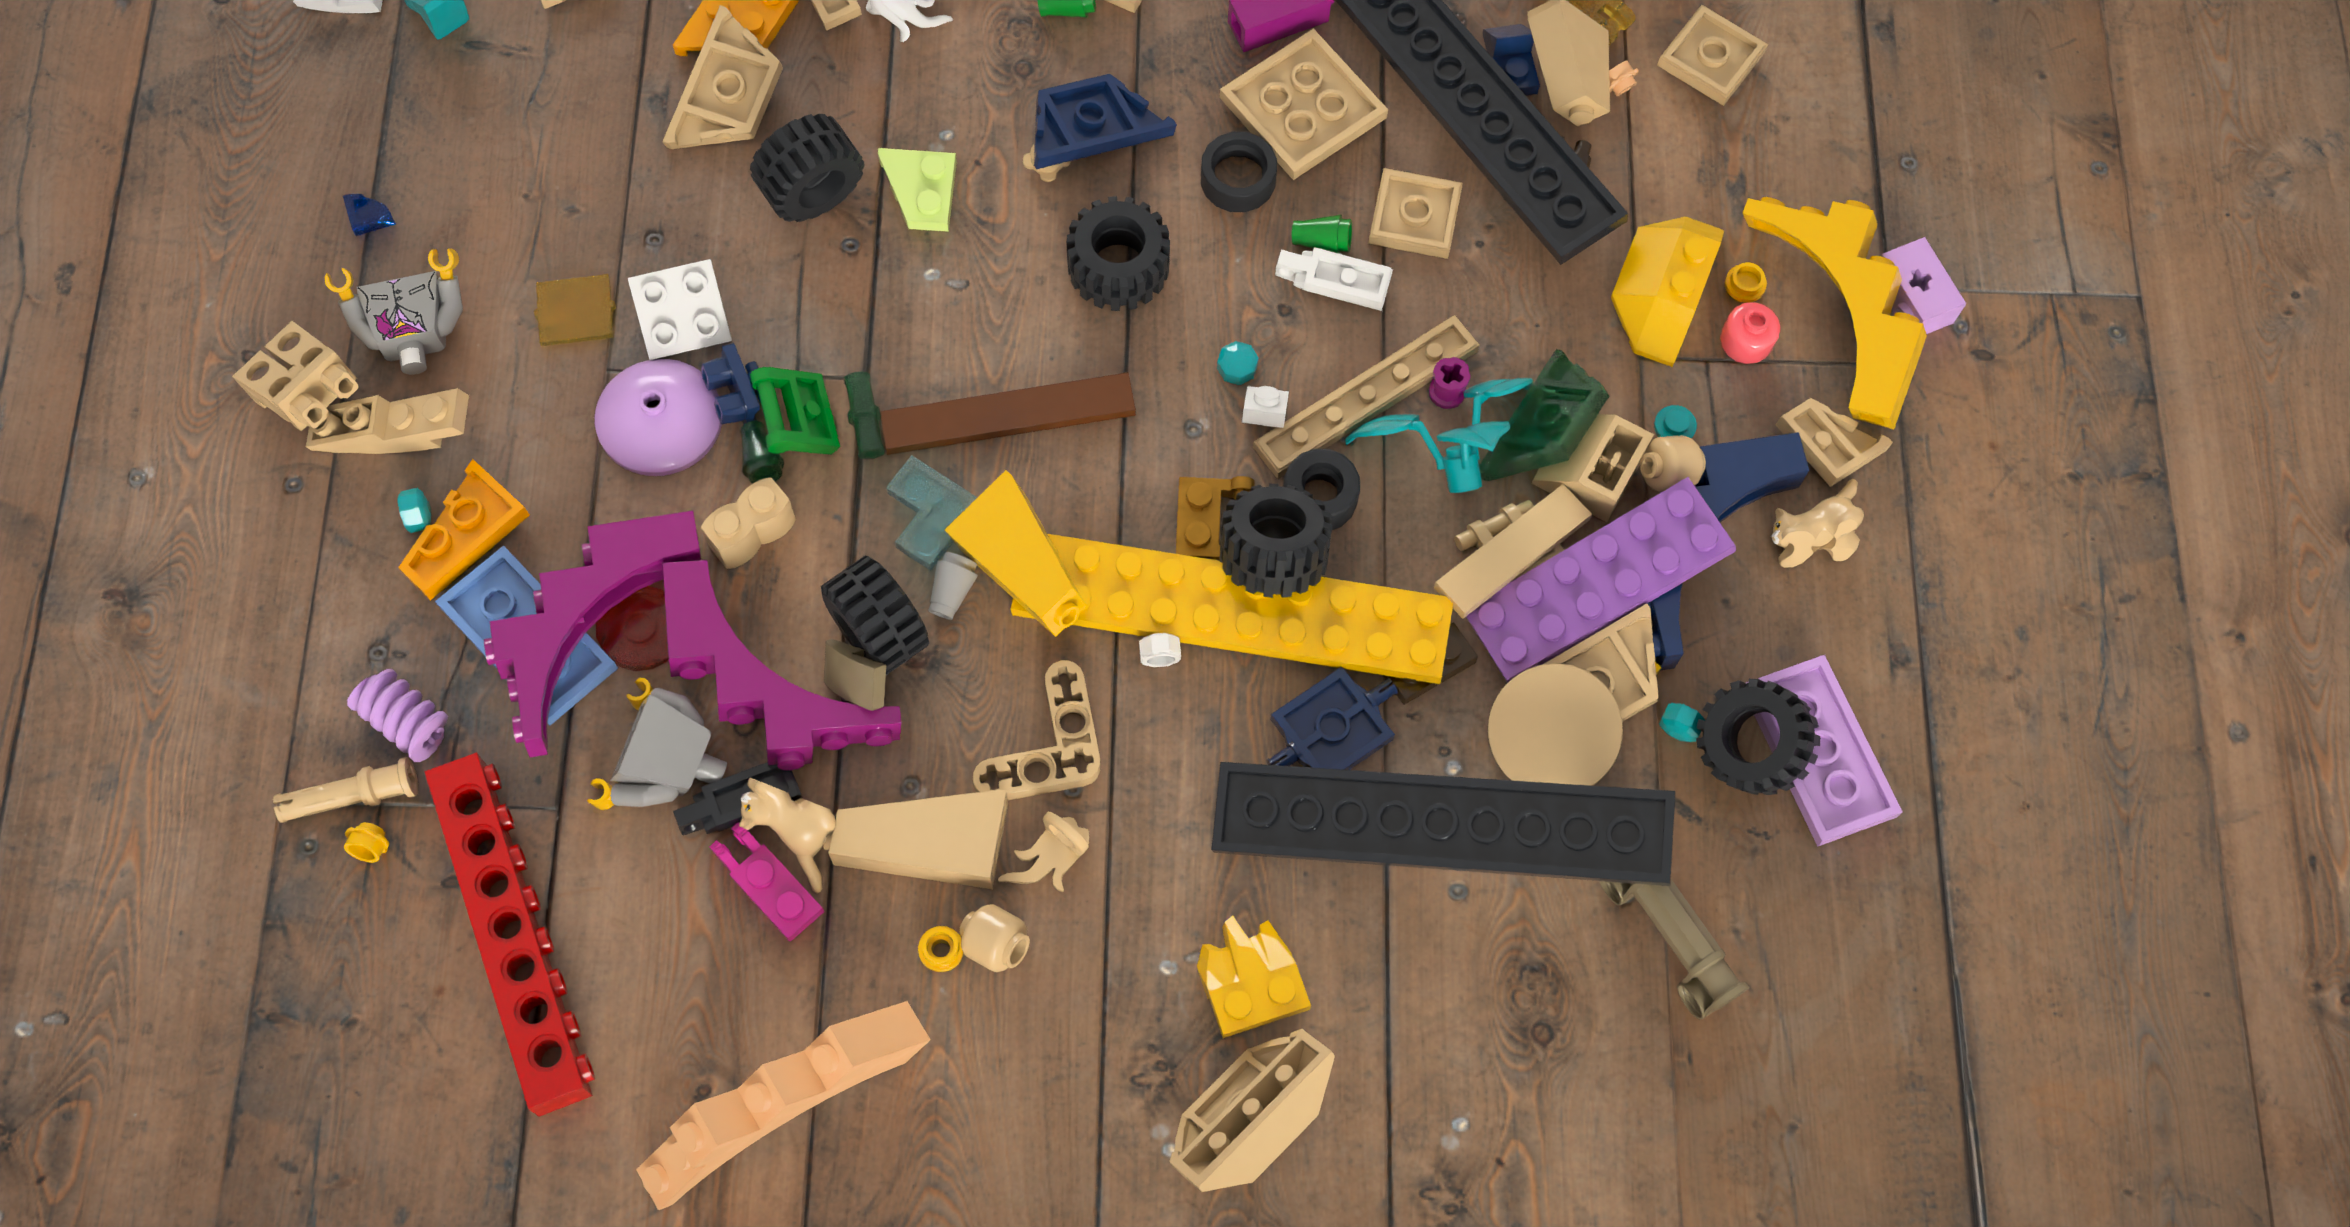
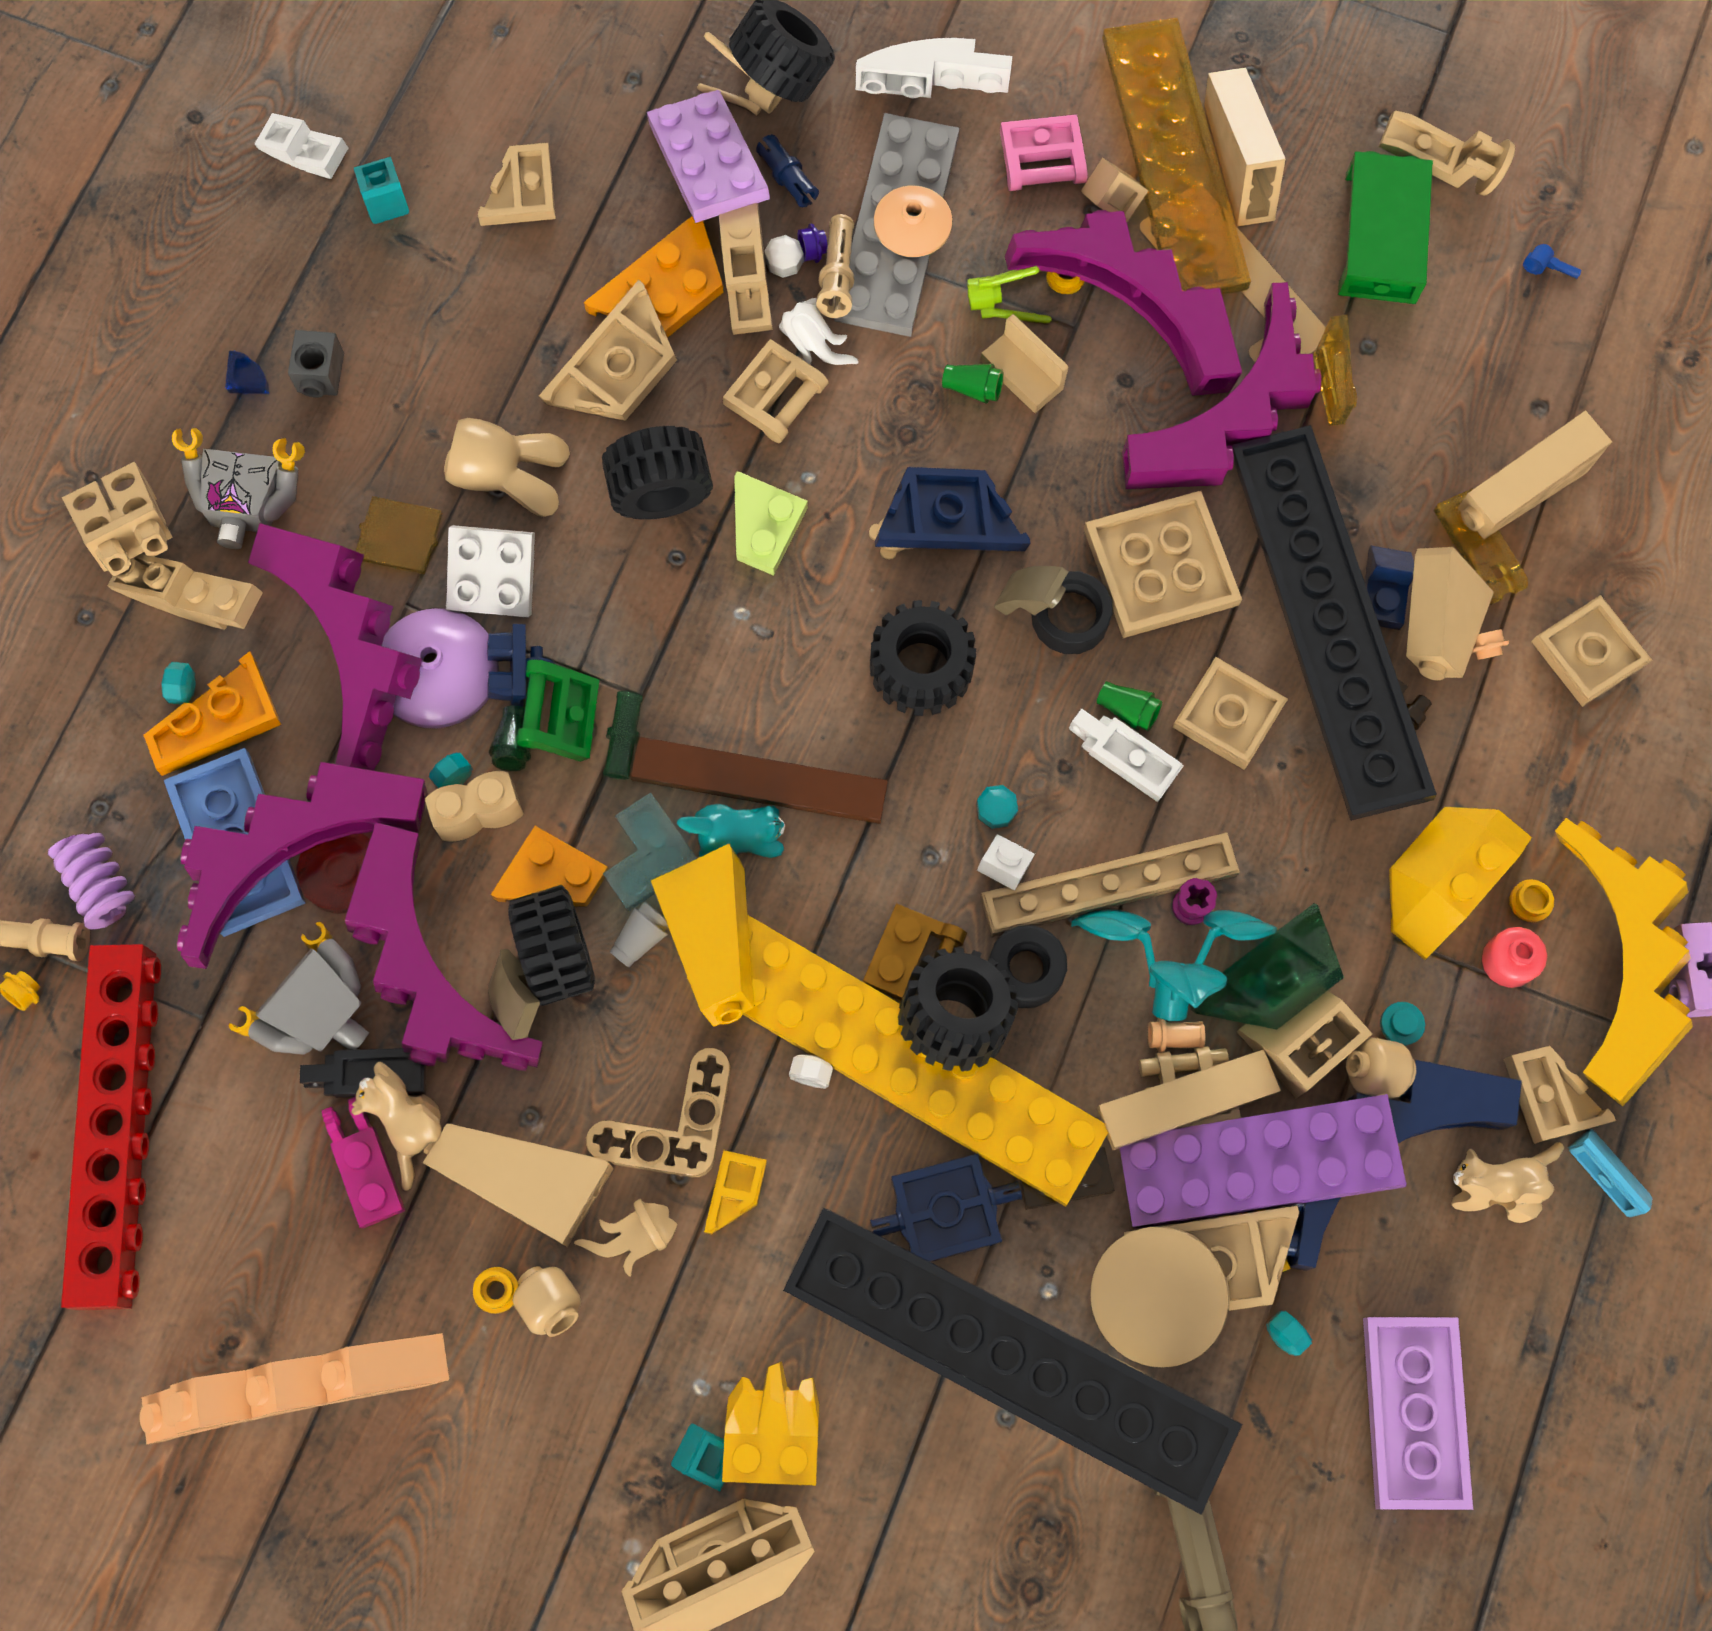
camera: 20 degrees right, 5 degrees up
(428, 166) = (312, 349): none -> dark grey brick
(571, 393) = (356, 628): none -> magenta arch
(638, 210) = (487, 460): none -> tan piece
(711, 498) = (451, 770): none -> teal tile
(833, 550) = (547, 863): none -> light orange wing
(873, 62) = (764, 383): none -> tan plate
(1020, 457) = (744, 830): none -> teal animal
(1130, 780) = (735, 1189): none -> yellow tile
(1194, 1026) = (701, 1456): none -> teal slope
(1196, 160) = (1032, 589): none -> dark tan slope
(1478, 504) = (1175, 1035): none -> light nougat pin
(1722, 730) = (1318, 1383): black tyre -> none
(1906, 491) = (1611, 1174): none -> medium azure slope

